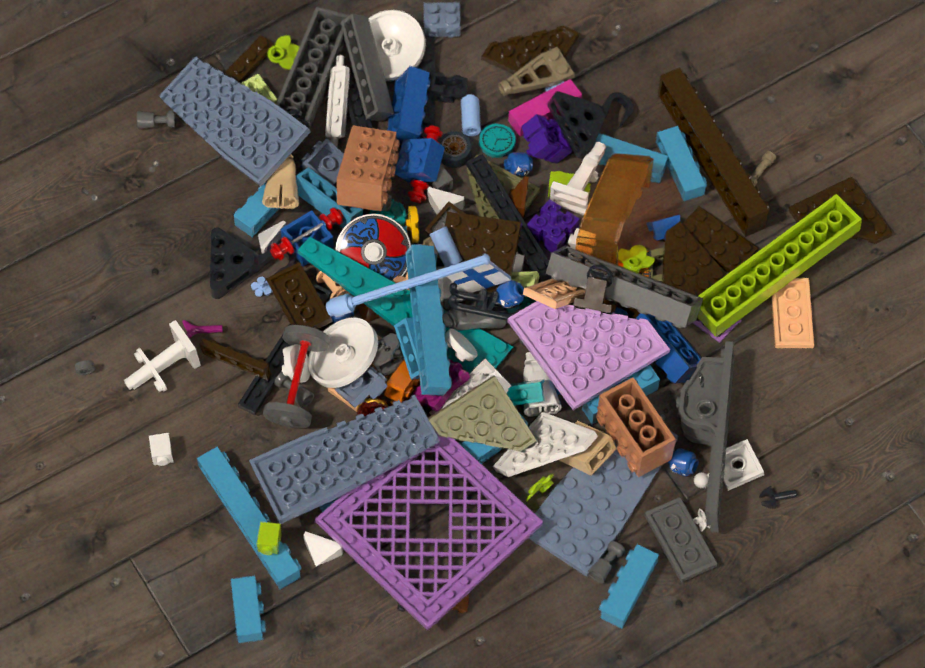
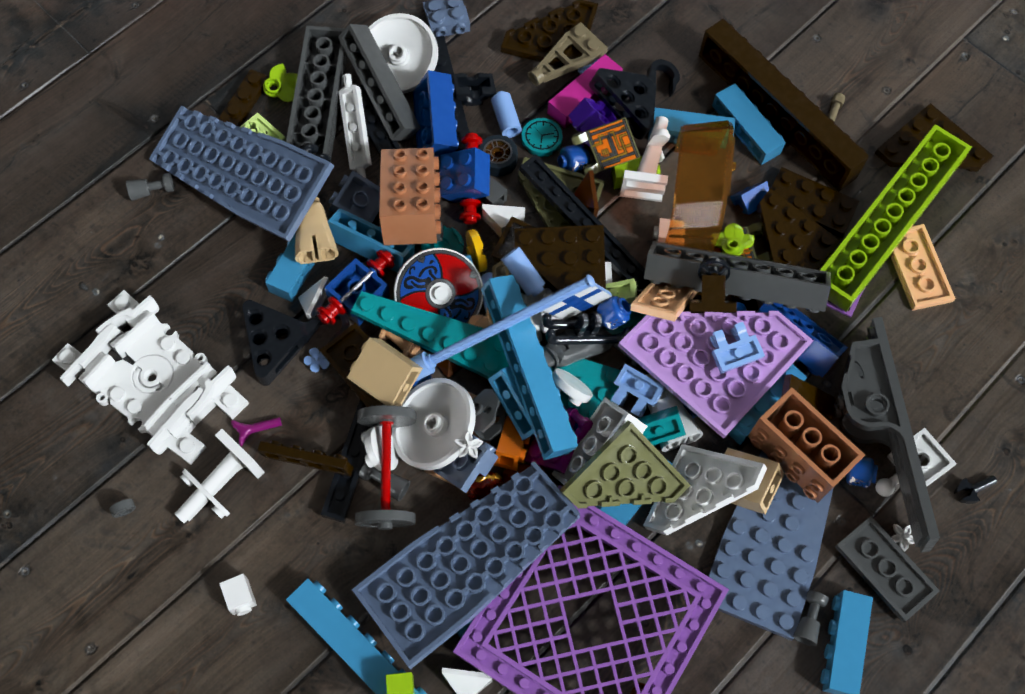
camera: 15 degrees left, 5 degrees up
(151, 283) = (183, 384): none -> white piece
(312, 302) = (384, 372): none -> tan brick
(365, 371) = (468, 445): none -> white plant
(518, 357) = (639, 385): none -> light blue plate
(542, 485) = (709, 537): lime plate -> none
(549, 158) = (610, 144): none -> flag
(553, 226) = (633, 221): dark purple brick -> none
(600, 345) = (736, 354): none -> light blue plate
(657, 395) = (817, 398): none -> dark brown tile

